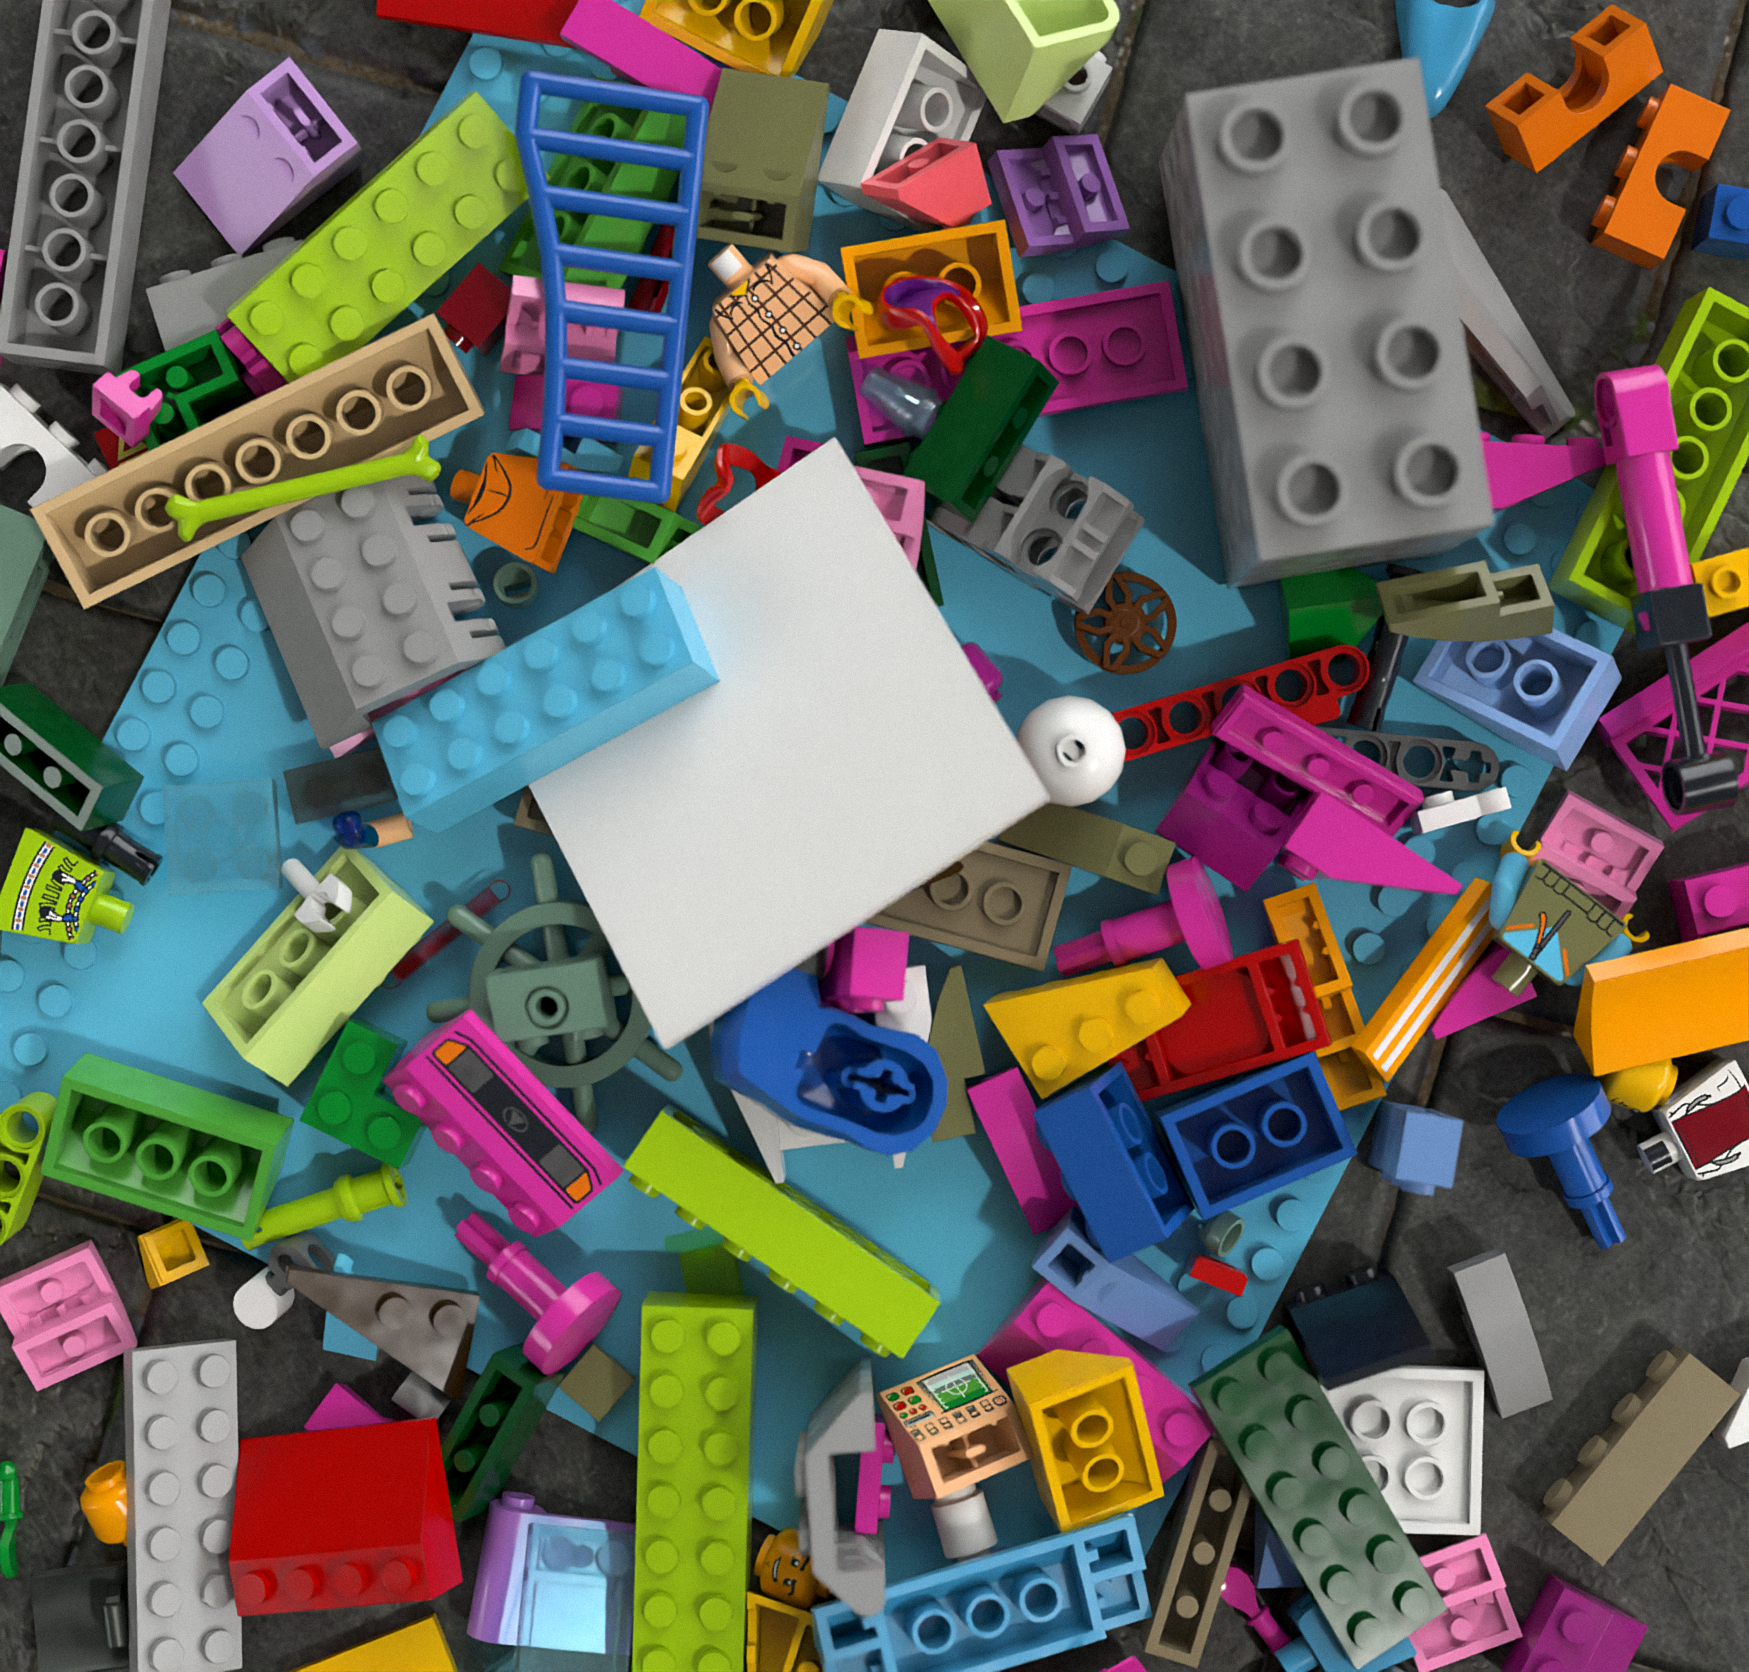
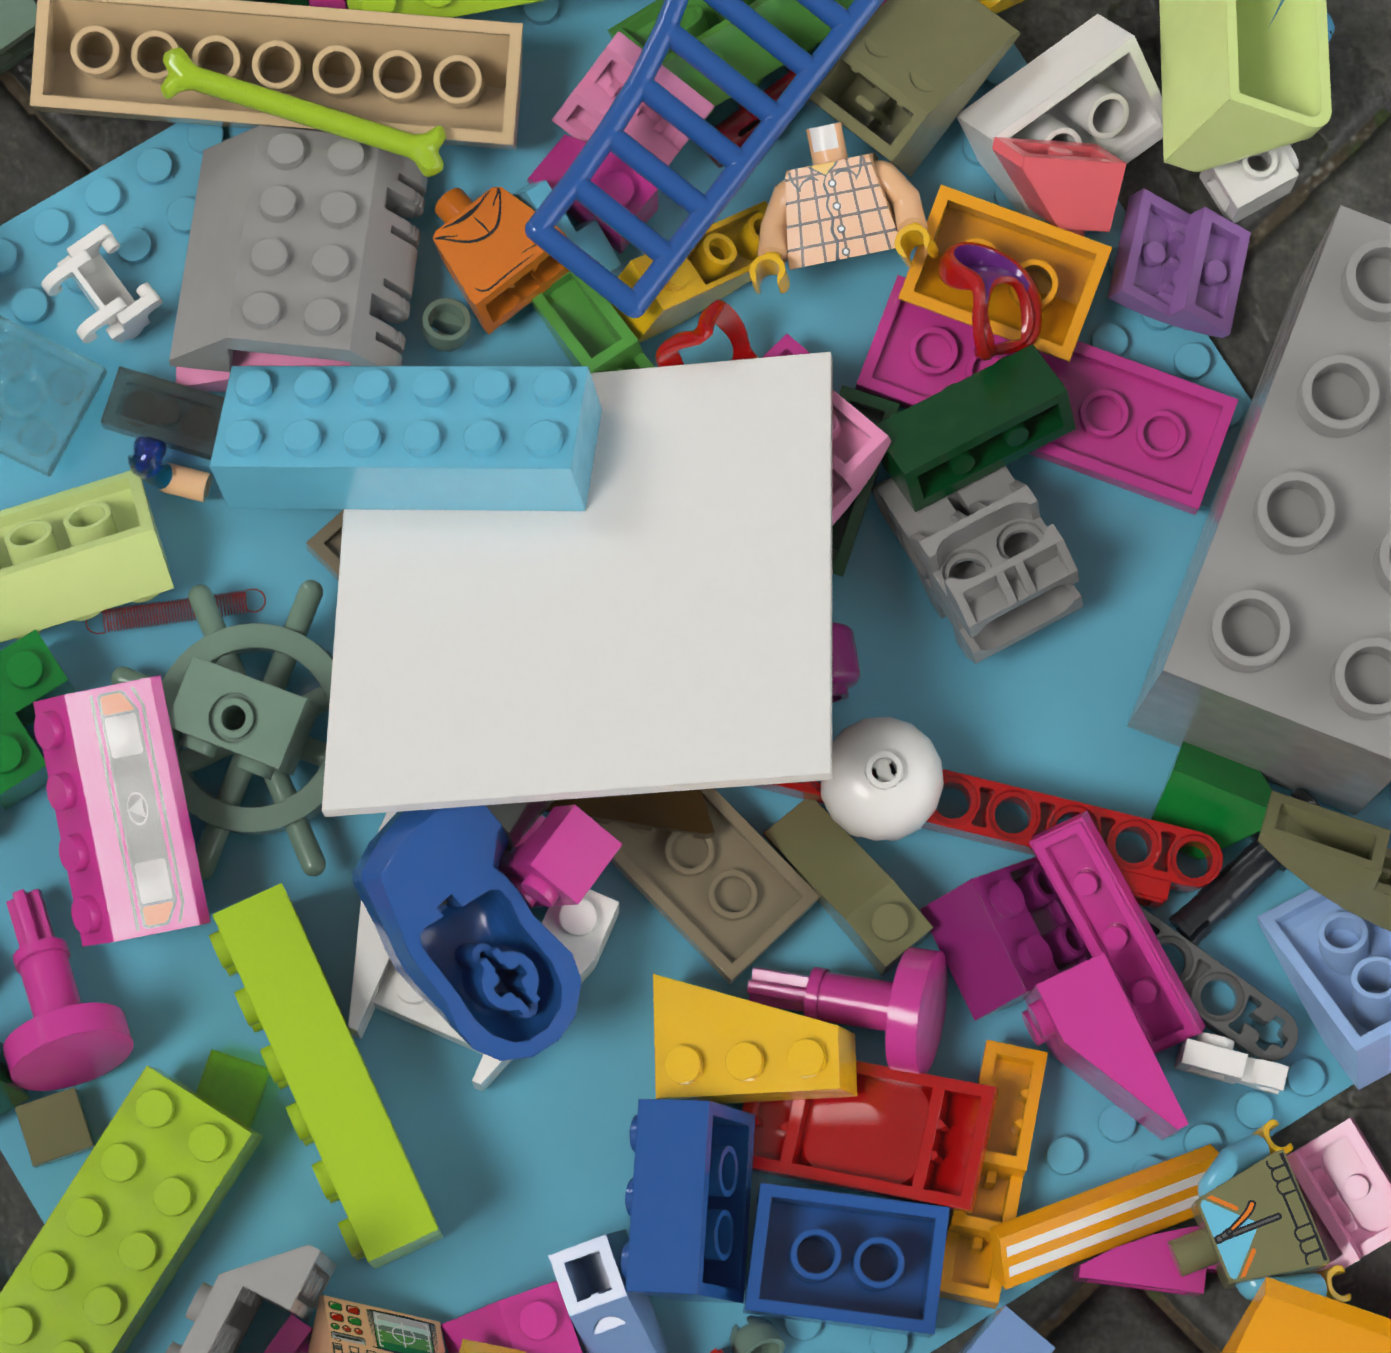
camera: 25 degrees right, 10 degrees down
(232, 717) = (103, 289): none -> white piece
(316, 895) = (78, 497): white bar -> none
(476, 311) = (562, 52): dark red brick -> none
(903, 401) = (915, 360): clear light blue cone -> none
(959, 1051) = (599, 1016): olive slope -> none
(1031, 1169) = (604, 1152): dark pink slope -> none
(1126, 625) = (1009, 701): reddish brown wheel -> none

